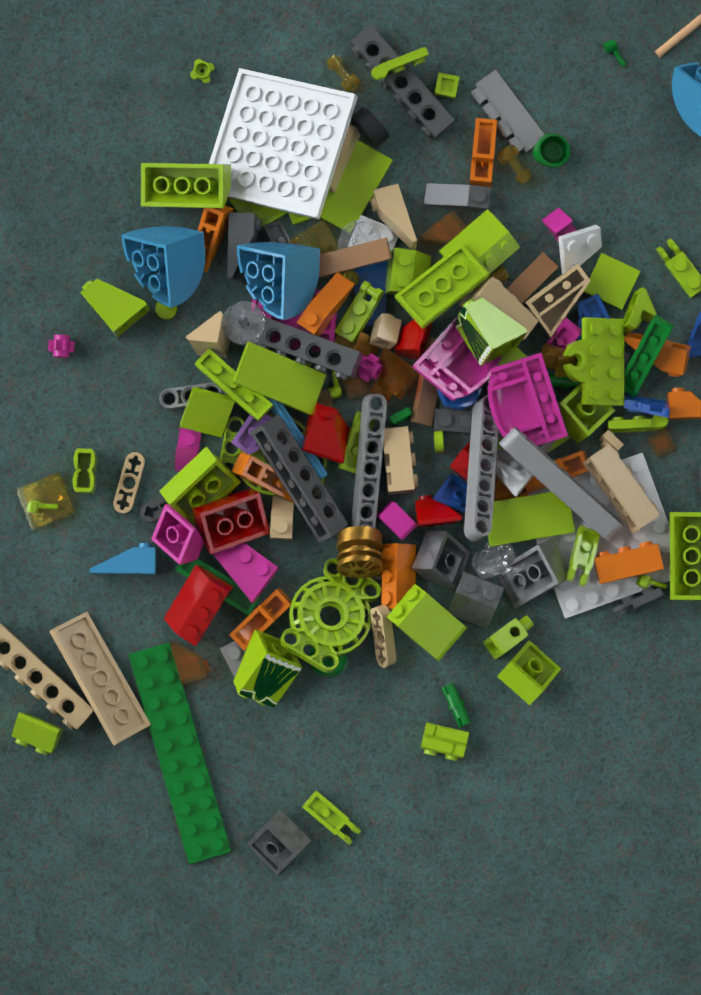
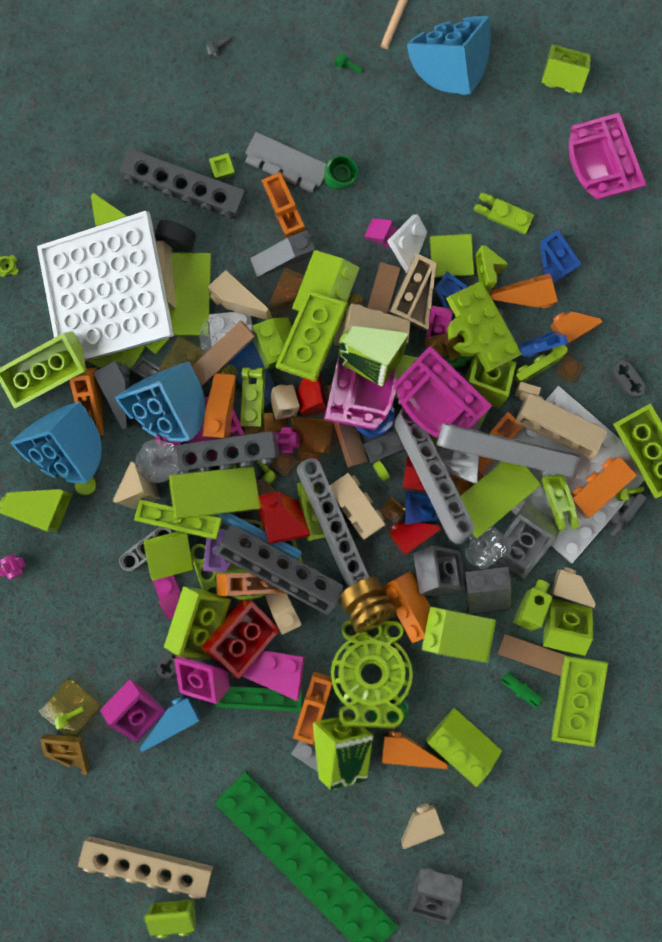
camera: 30 degrees left, 0 degrees up
(23, 536) = (66, 750): none -> pearl gold wing
(85, 464) = (87, 659): lime brick -> none
(99, 533) = (132, 711): none -> dark pink slope
(100, 678) = (201, 839): tan plate -> none
(119, 497) = (126, 638): tan beam -> none
(189, 664) = (271, 782): clear orange slope -> none
(197, 604) = (251, 728): red slope -> none
(301, 775) = (422, 826): none -> tan slope
(317, 73) = (104, 212): none -> lime slope
(321, 700) = (404, 751): none -> orange slope
(329, 816) = (466, 847): lime hinge -> none
(349, 82) = (138, 206): clear yellow bar -> none
(377, 726) = (464, 747): none -> lime slope
(385, 645) = (426, 665): tan beam -> none
(396, 520) = (383, 558): dark pink slope -> none
(398, 64) = (170, 166): lime hinge -> none
(400, 416) = (336, 468): green tile -> none
(429, 482) = (392, 510): none -> clear orange plate
(444, 740) = (528, 727): lime brick -> none
(490, 687) = (531, 654): none -> medium nougat tile
(502, 743) = (579, 701): none -> lime tile
(509, 155) = (306, 197): clear yellow bar -> none
(552, 639) = (571, 587): none -> tan slope
(646, 354) = (518, 298): green plate -> none

